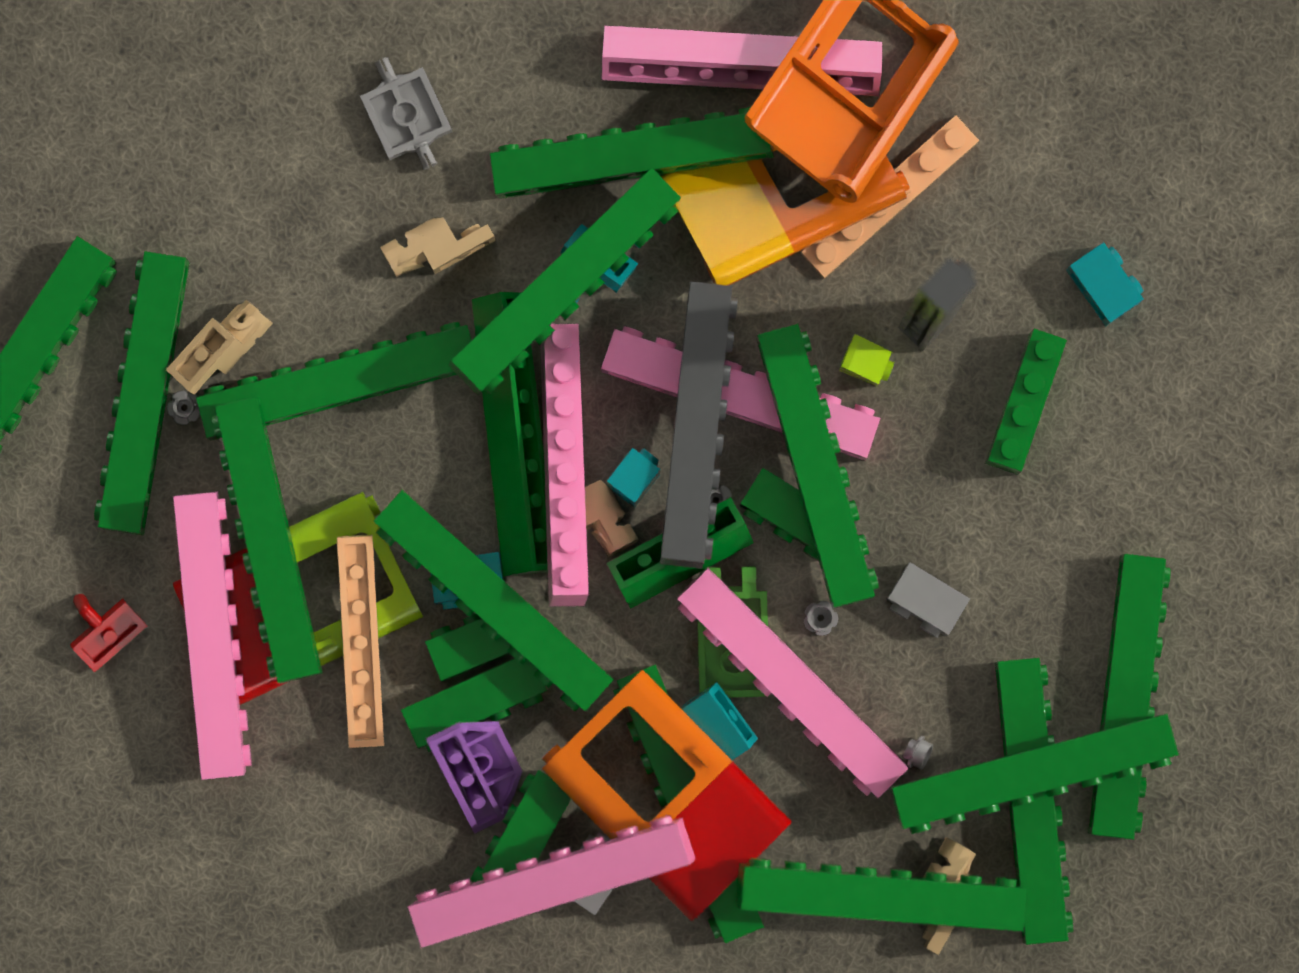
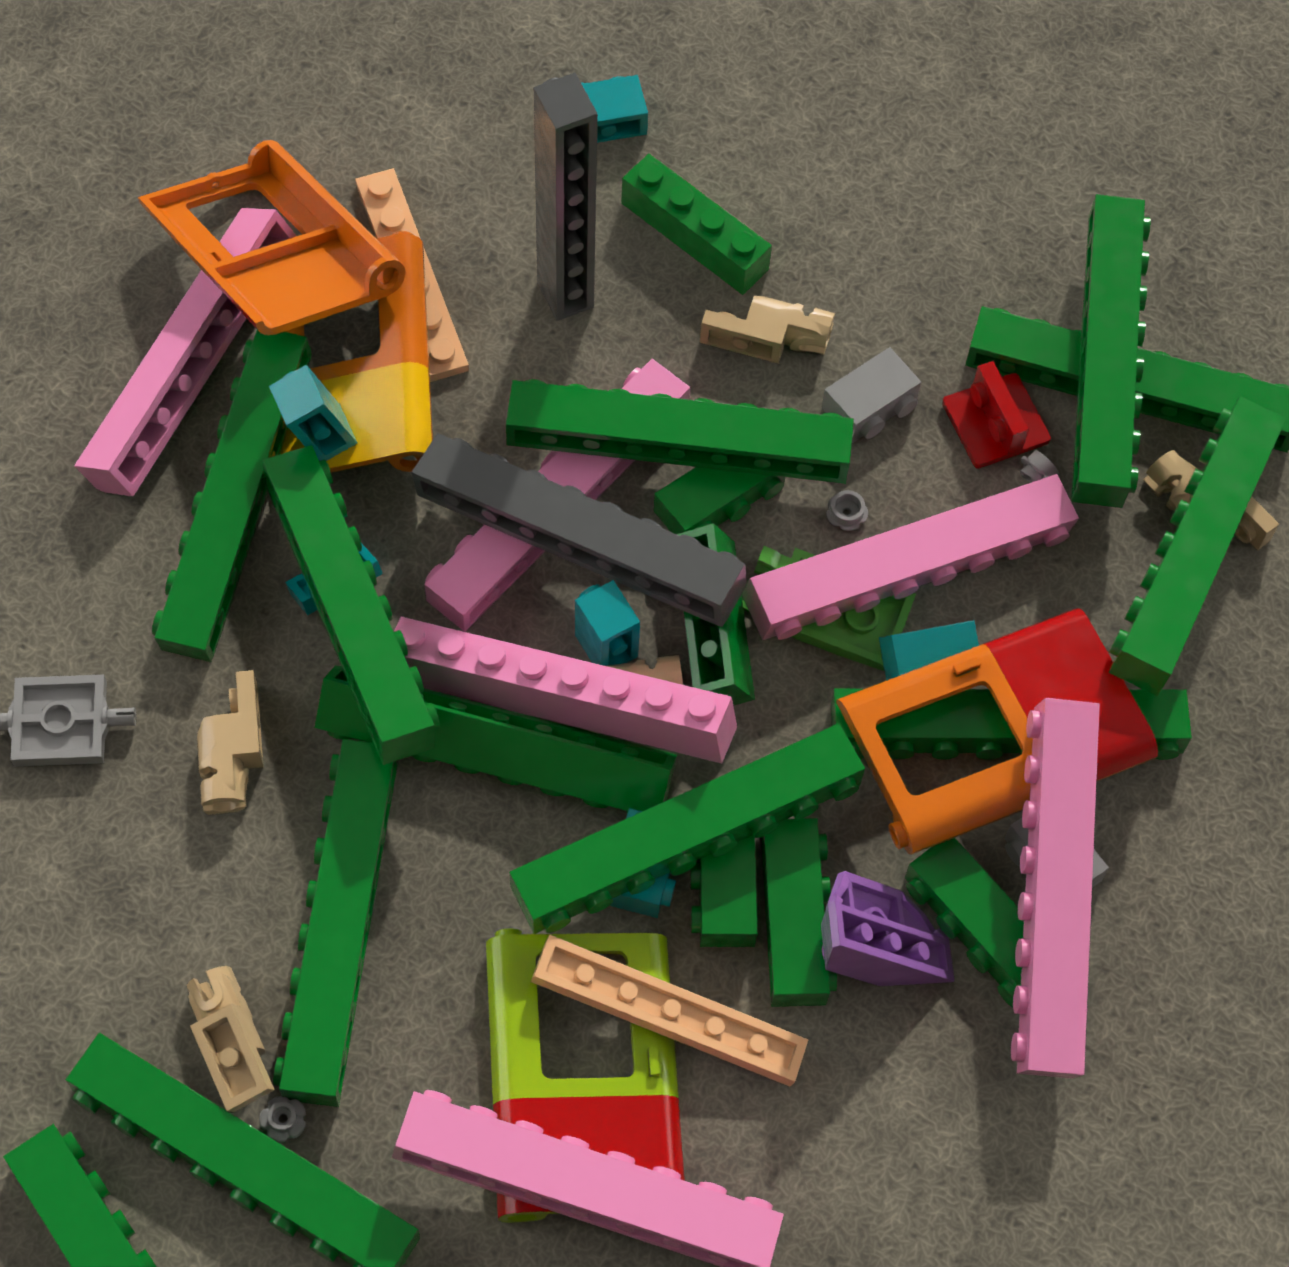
camera: 70 degrees left, 20 degrees down
(268, 540) = (499, 1063): green brick -> none
(706, 186) = (313, 413): none -> teal brick
(866, 361) = (578, 352): lime slope -> none
(951, 704) = (995, 417): none -> red bracket
(957, 497) = (768, 328): none -> tan plate
(1130, 684) = (1040, 243): green brick -> none

